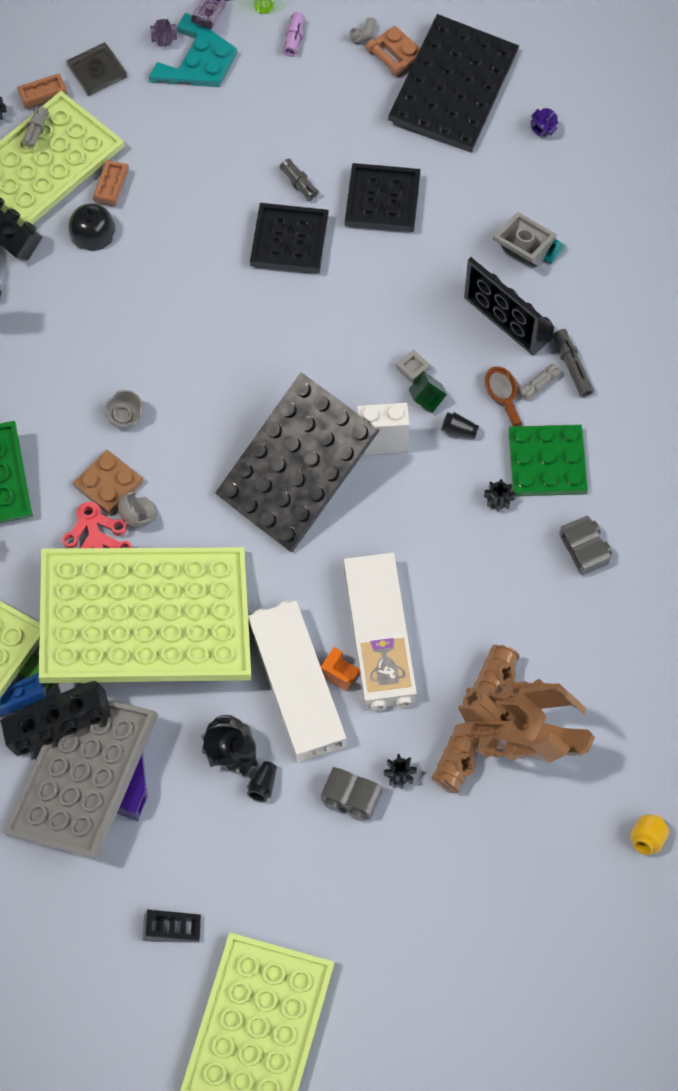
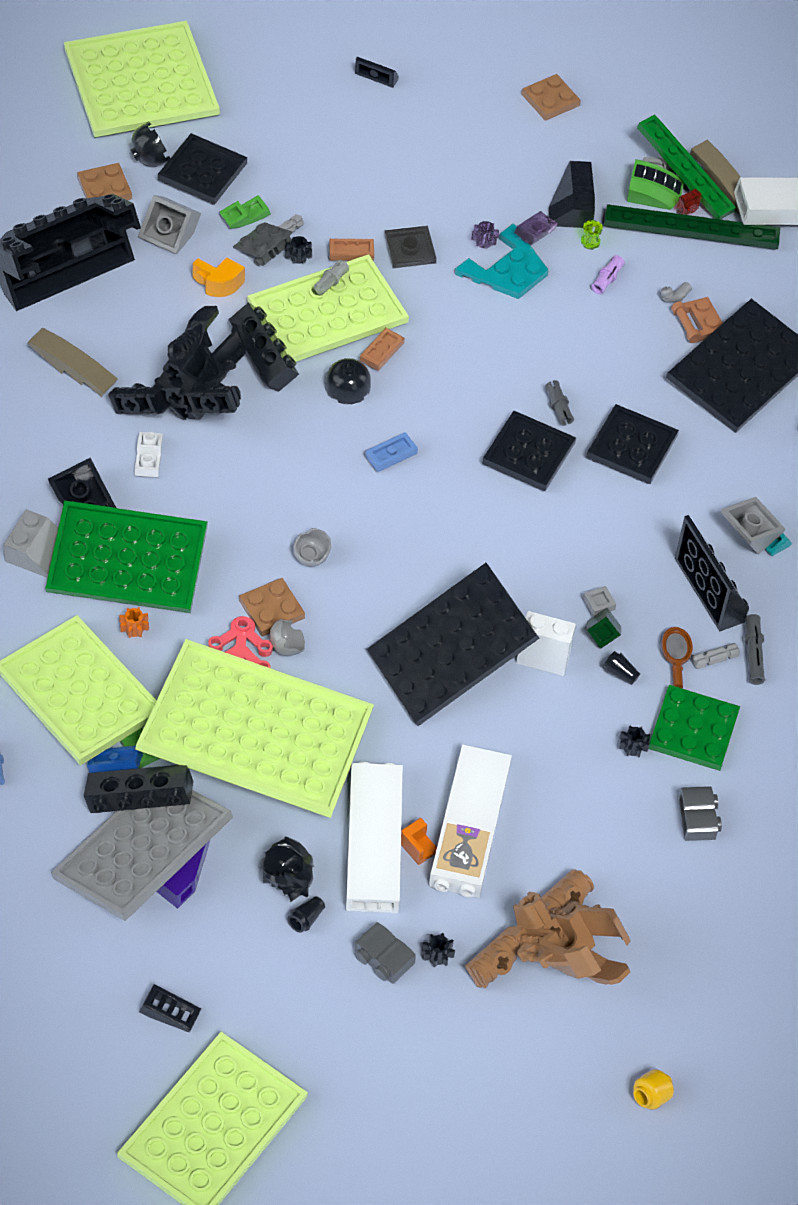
camera: 15 degrees right, 10 degrees down
(160, 284) = (391, 452): none -> medium blue plate

